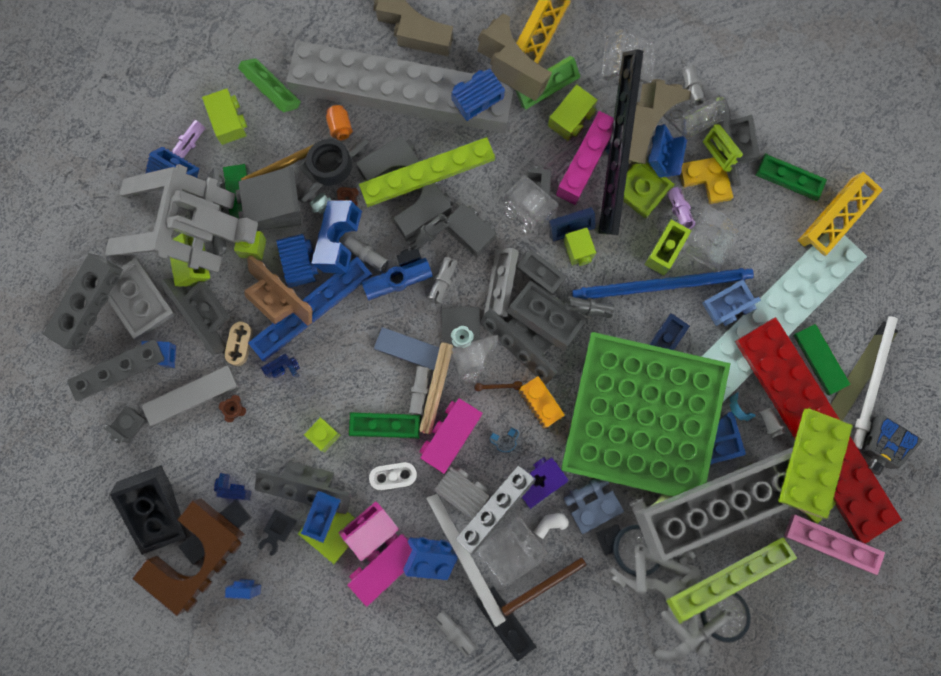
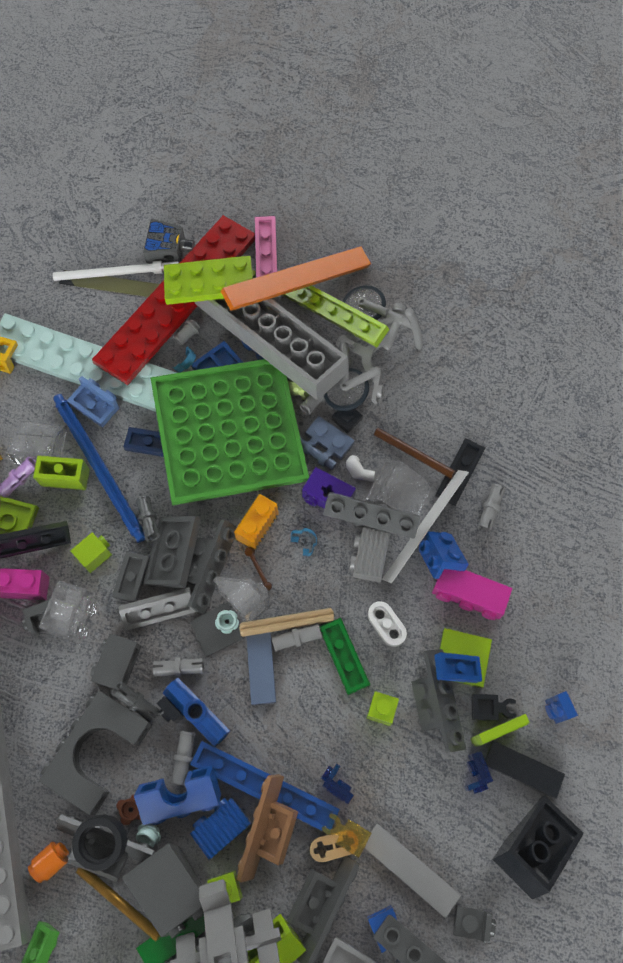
camera: 110 degrees left, 10 degrees down
(219, 540) = (594, 773): reddish brown arch -> none
(225, 407) = (393, 817): copper plate -> none
(236, 357) = (351, 836): none -> clear yellow plate
(251, 525) = (500, 730): none -> lime tile
(368, 531) = (447, 619): brick -> none
(427, 172) = (72, 732): lime plate -> none
(450, 435) = (324, 588): dark pink brick -> none
(572, 222) = (71, 568): dark blue plate -> none
(783, 557) = (294, 278): none -> orange tile
(821, 359) = (113, 316): green tile -> none

